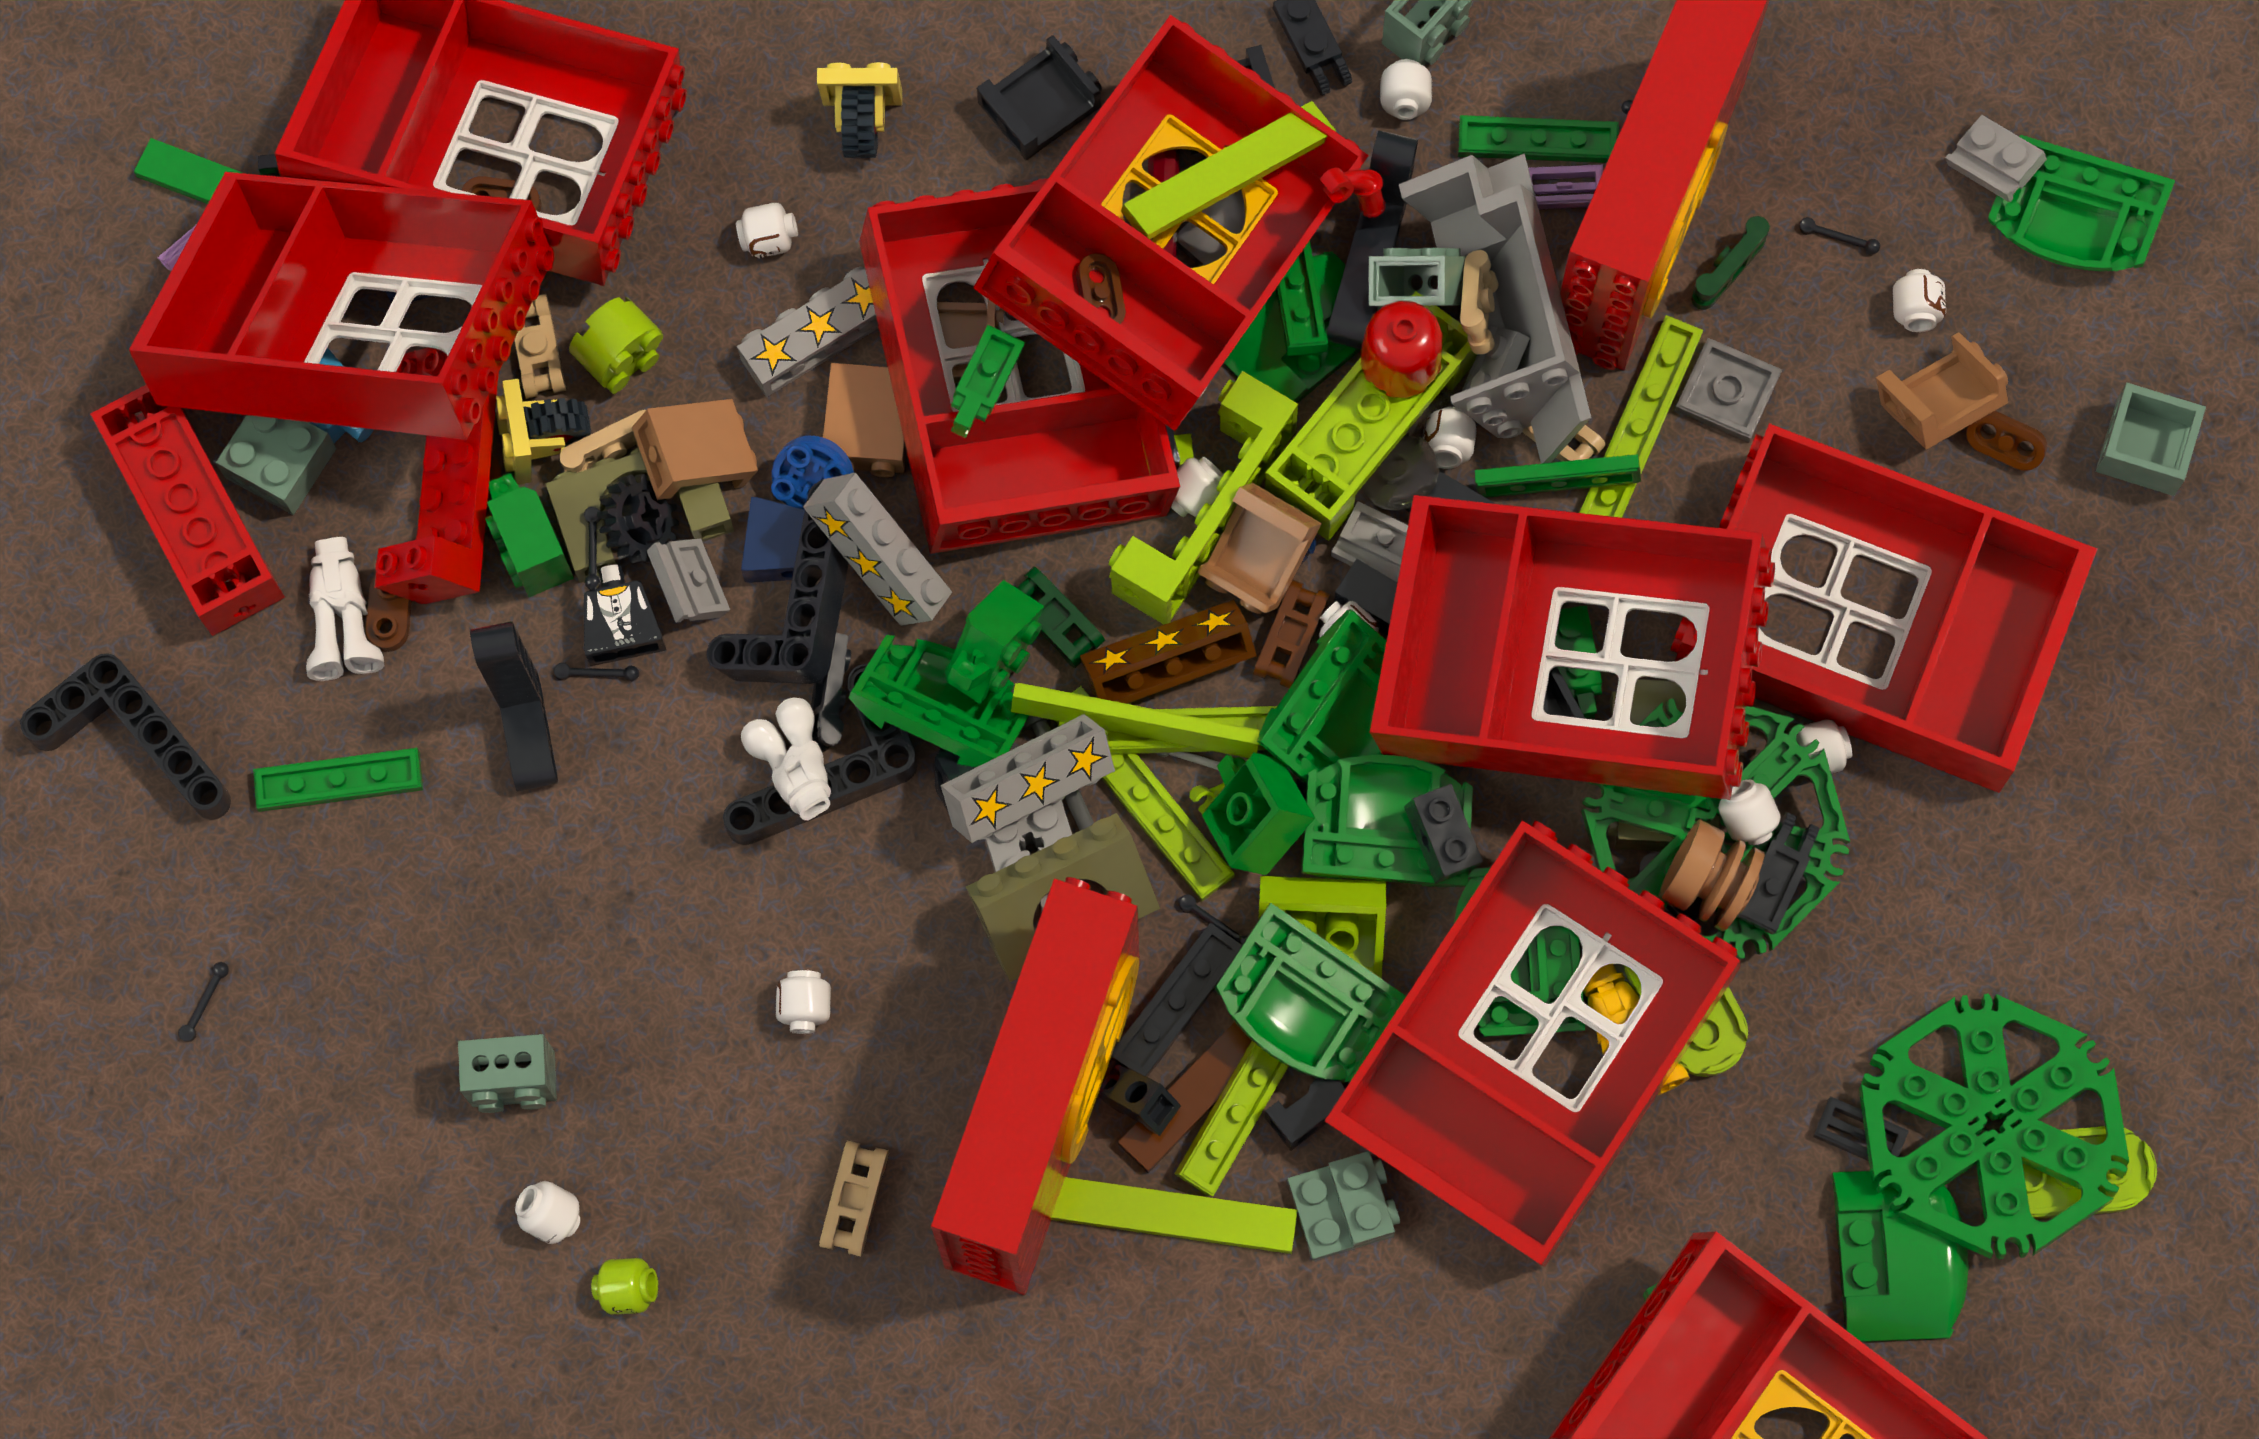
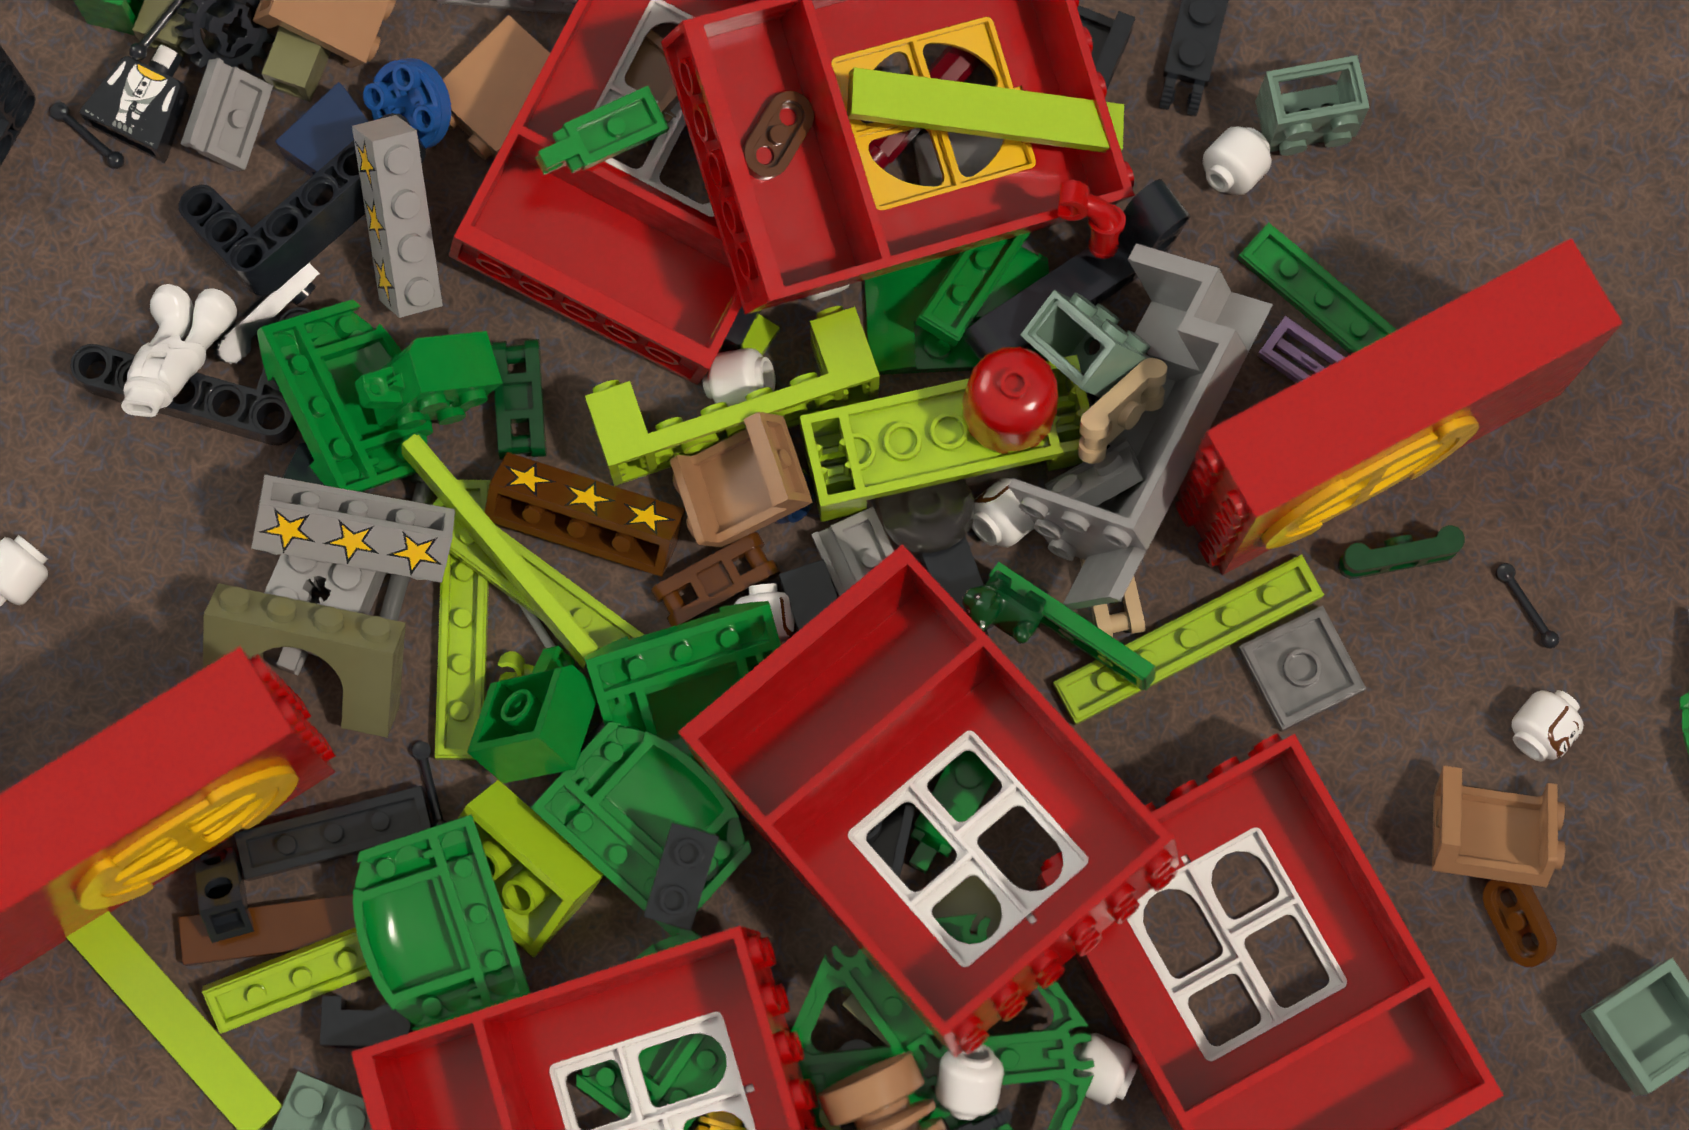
camera: 35 degrees right, 5 degrees up
(1519, 489) = (1004, 607): none -> dark green animal

